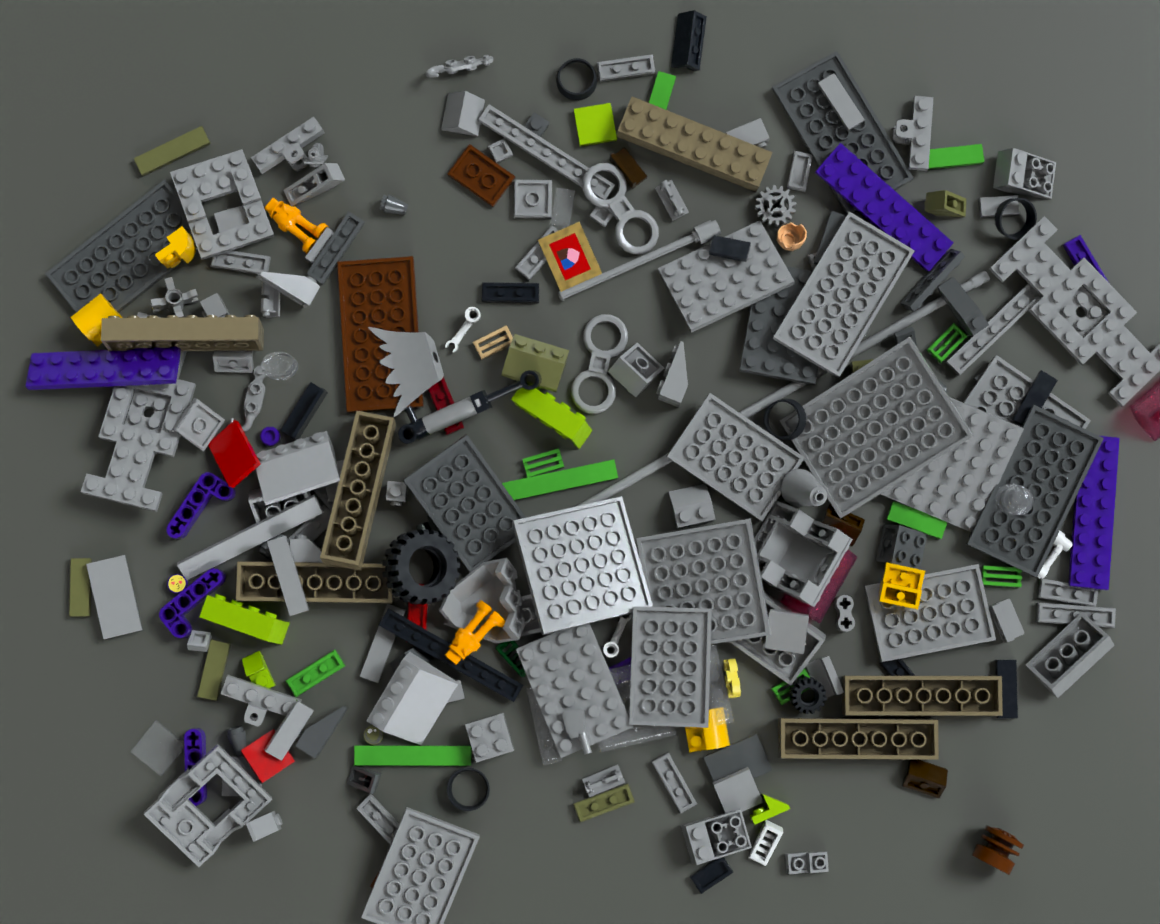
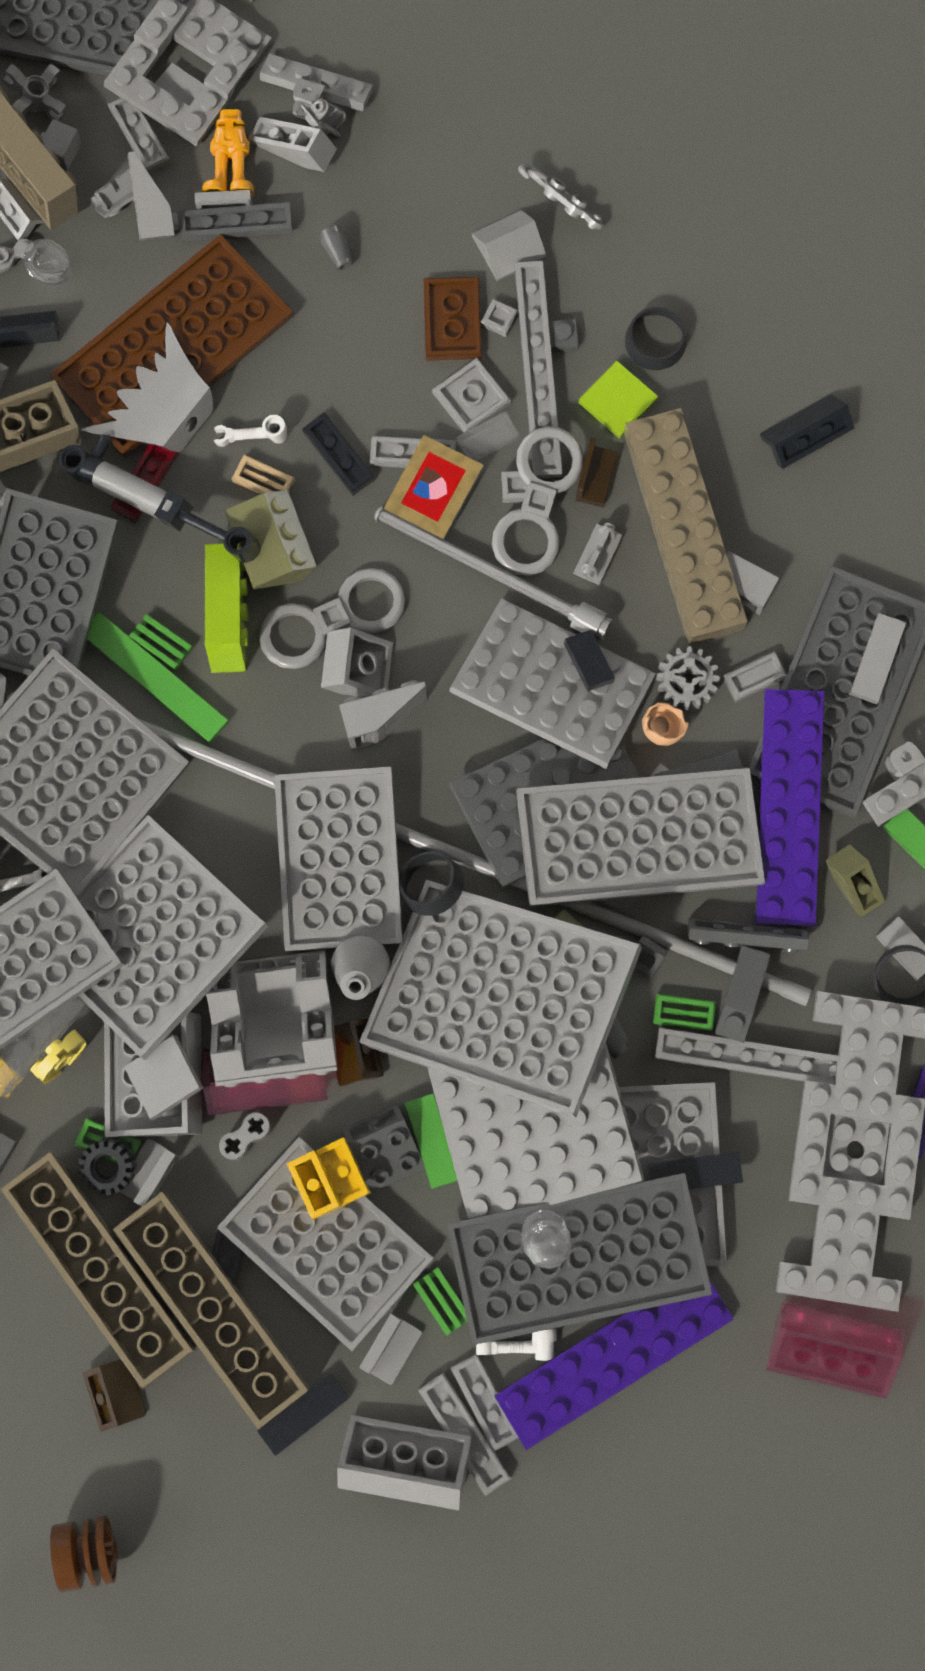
camera: 55 degrees right, 5 degrees down
(181, 247) = (95, 46): yellow brick -> none
(626, 68) = (715, 384): light grey tile -> none
(662, 90) = (721, 445): bright green tile -> none
(691, 506) = (239, 853): light grey slope -> none

